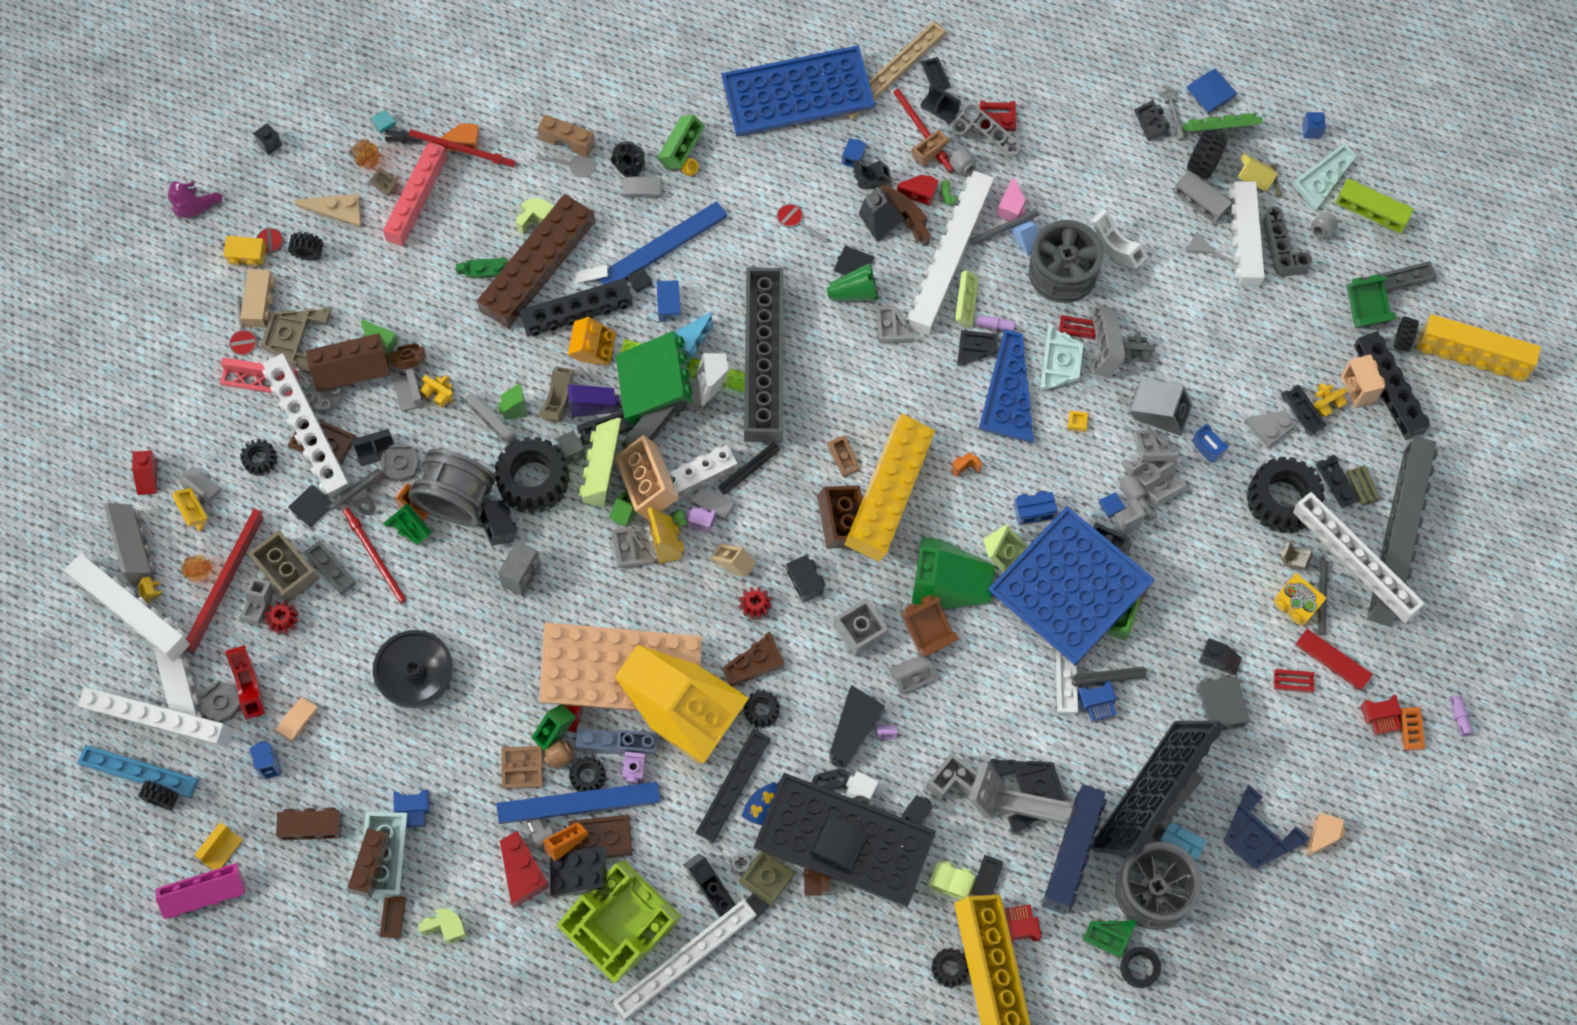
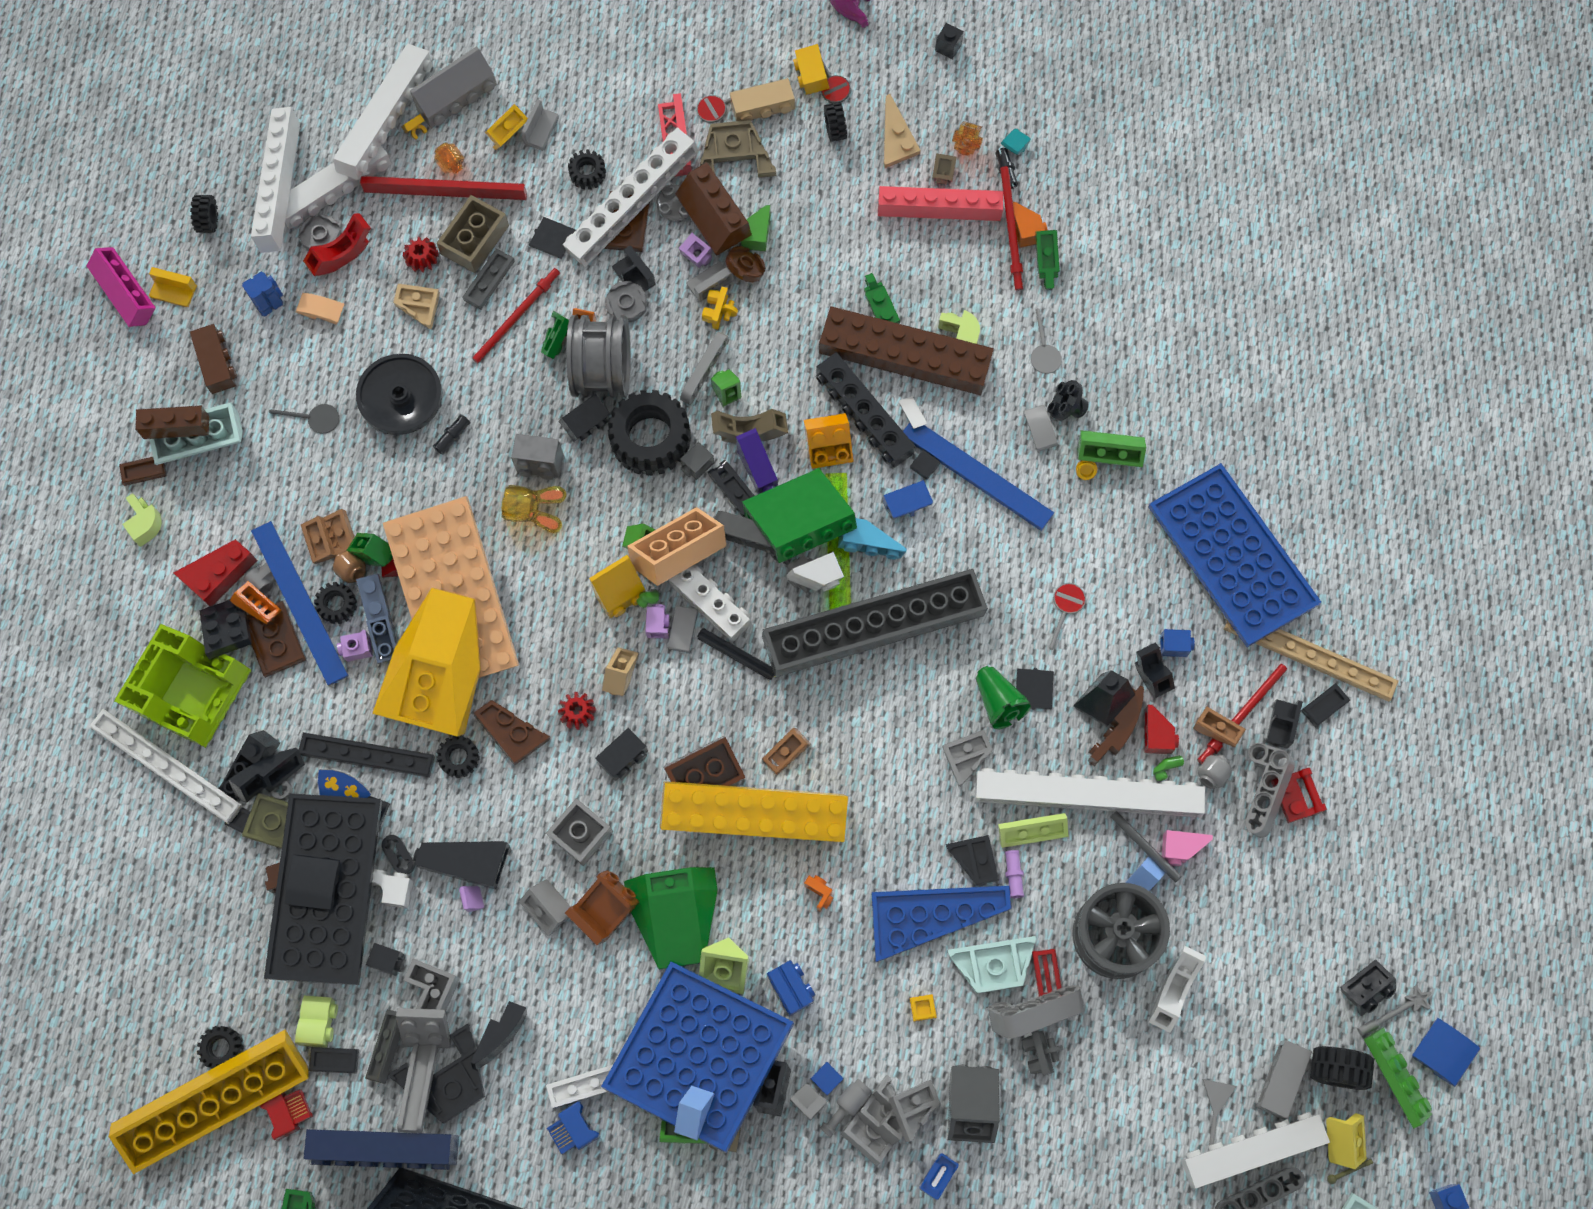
camera: 75 degrees right, 5 degrees up
(136, 770) = (230, 190): dark azure tile -> none
(145, 472) = (536, 74): red slope -> none
(258, 600) = (429, 225): light grey brick -> none
(328, 633) = (417, 302): none -> tan wing
(359, 493) = (577, 273): dark grey piece -> none
(377, 385) = (692, 245): none -> lavender brick
(404, 746) = (321, 418): none -> dark grey piece
(415, 806) = (255, 447): blue piece -> none
(466, 637) = (451, 434): none -> black pin
(498, 131) = (1047, 256): none -> green hinge
(554, 130) = (1072, 327): medium nougat arch -> none
(559, 591) = (522, 505): none -> clear yellow piece
(601, 463) = (681, 497): yellowish green slope -> none
(629, 550) = (599, 556): light grey wing -> none
(726, 868) = (266, 774): none -> black slope
(989, 830) = (384, 1049): none -> dark grey tile
(1007, 735) = (499, 1034): none -> black slope
(1111, 675) = (606, 1133): dark grey axle -> none
(1118, 594) = (693, 1112): none -> light blue slope

